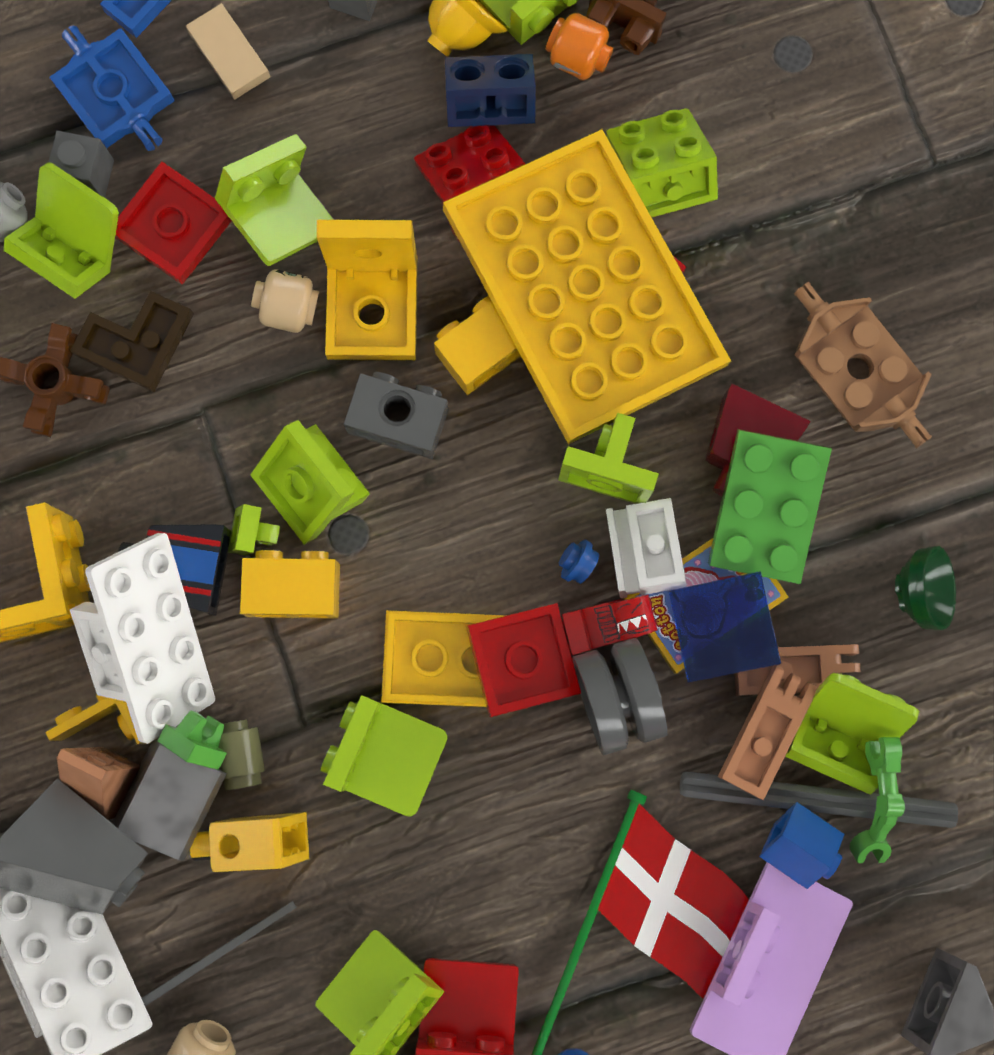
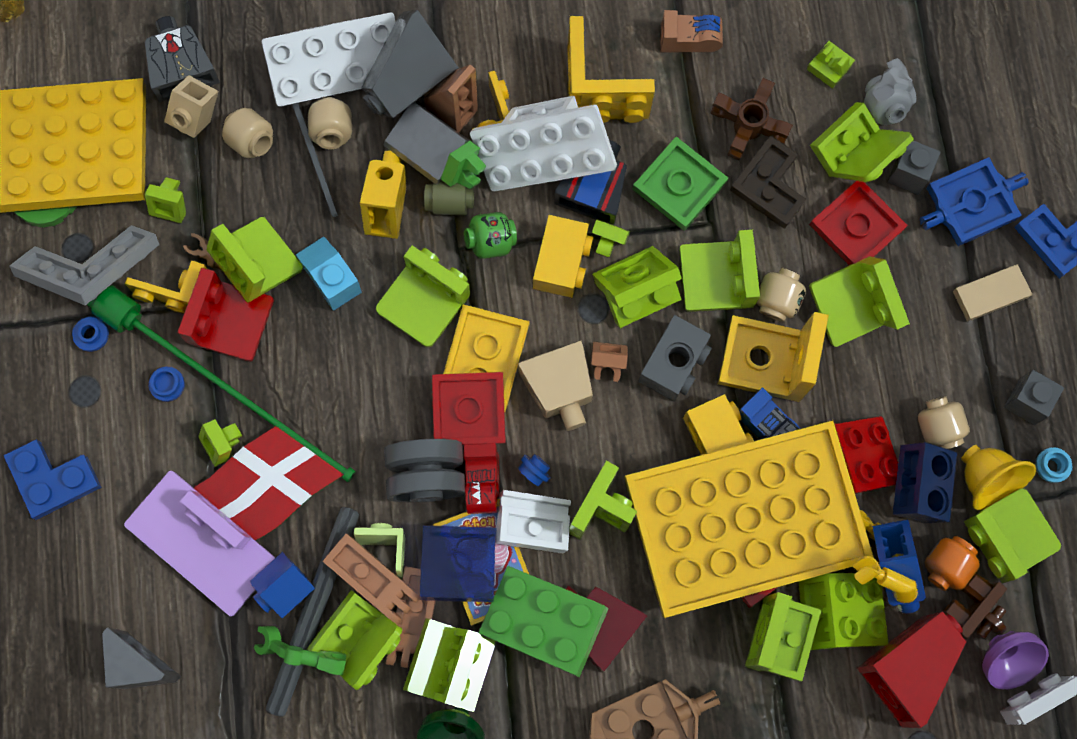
camera: 100 degrees right, 5 degrees down
(158, 455) = (680, 183): none -> bright green plate
(162, 945) = (329, 123): none -> tan head
(272, 379) = (720, 274): none -> lime bracket
(280, 686) = (490, 235): none -> bright green head
(374, 894) = (329, 273): none -> medium azure slope
(409, 81) = (943, 423): none -> tan head
(412, 498) = (609, 356): none -> nougat tile
(450, 289) = (765, 417): none -> blue leg
(461, 552) = (559, 383): none -> tan torso
(596, 101) = (898, 564): none -> torso
(638, 981) = (218, 441): none -> lime tile
(704, 732) = (384, 535): none -> yellowish green bracket
(714, 64) = (915, 668): none -> red slope
(717, 223) = (783, 637): none -> lime bracket
(848, 612) = (449, 664): none -> bracket

